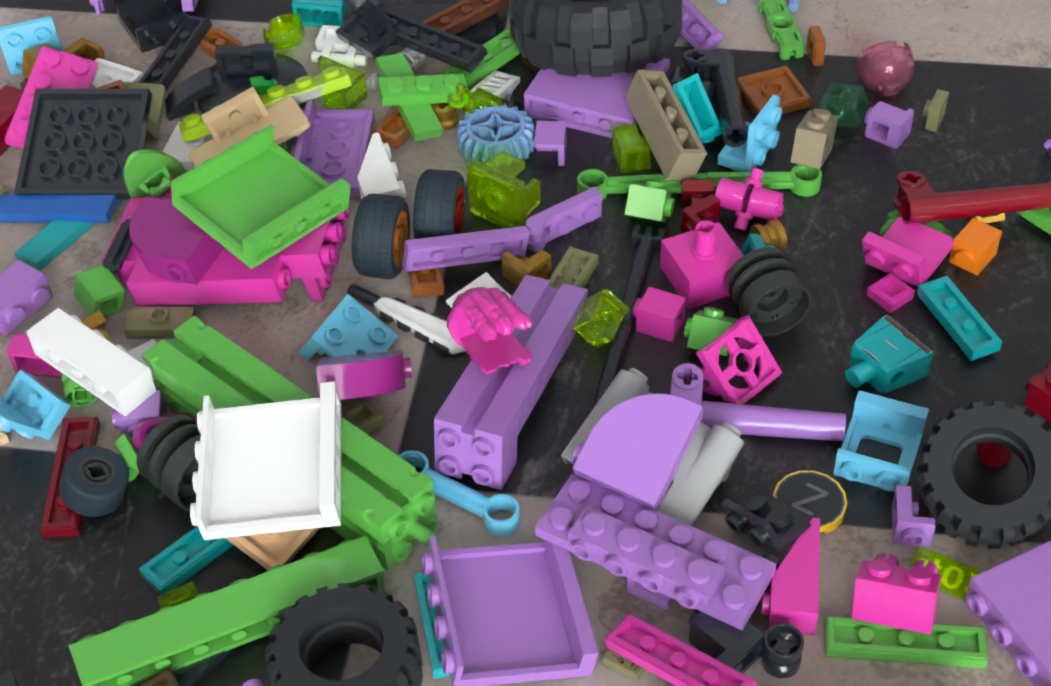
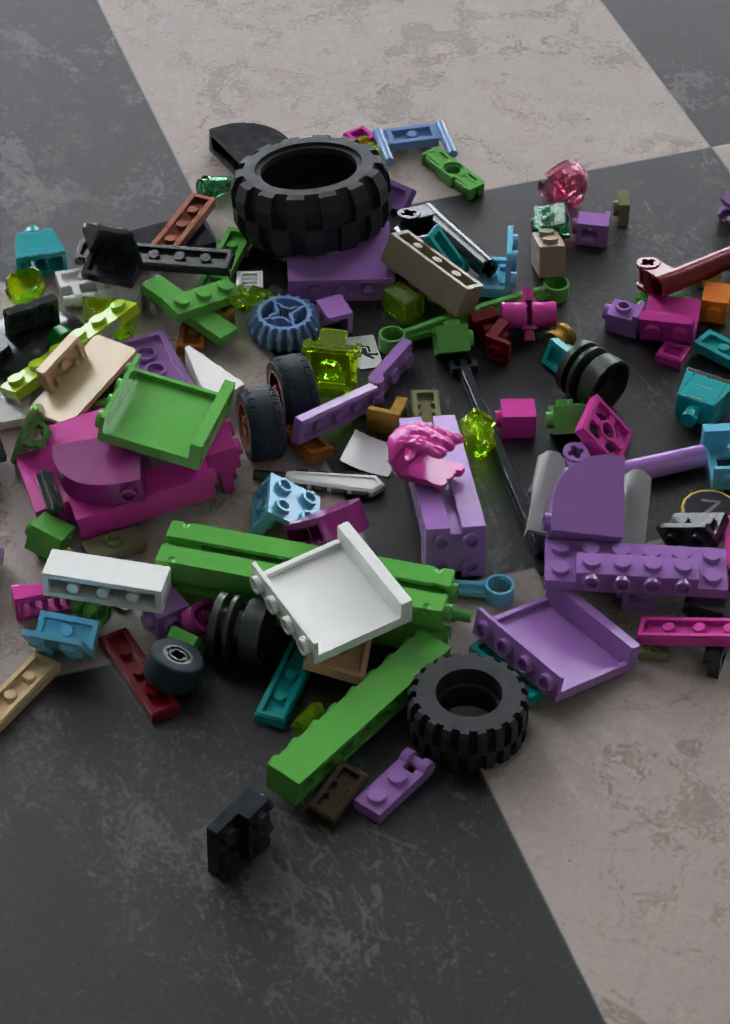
camera: 30 degrees left, 5 degrees down
(558, 188) = (370, 353): none -> white sticker
(699, 263) = (524, 371): dark pink brick -> none
(759, 88) = (485, 226): dark orange tile -> none
(816, 45) = (494, 180): dark orange tile -> none
(851, 230) = (622, 317): none -> medium lavender brick

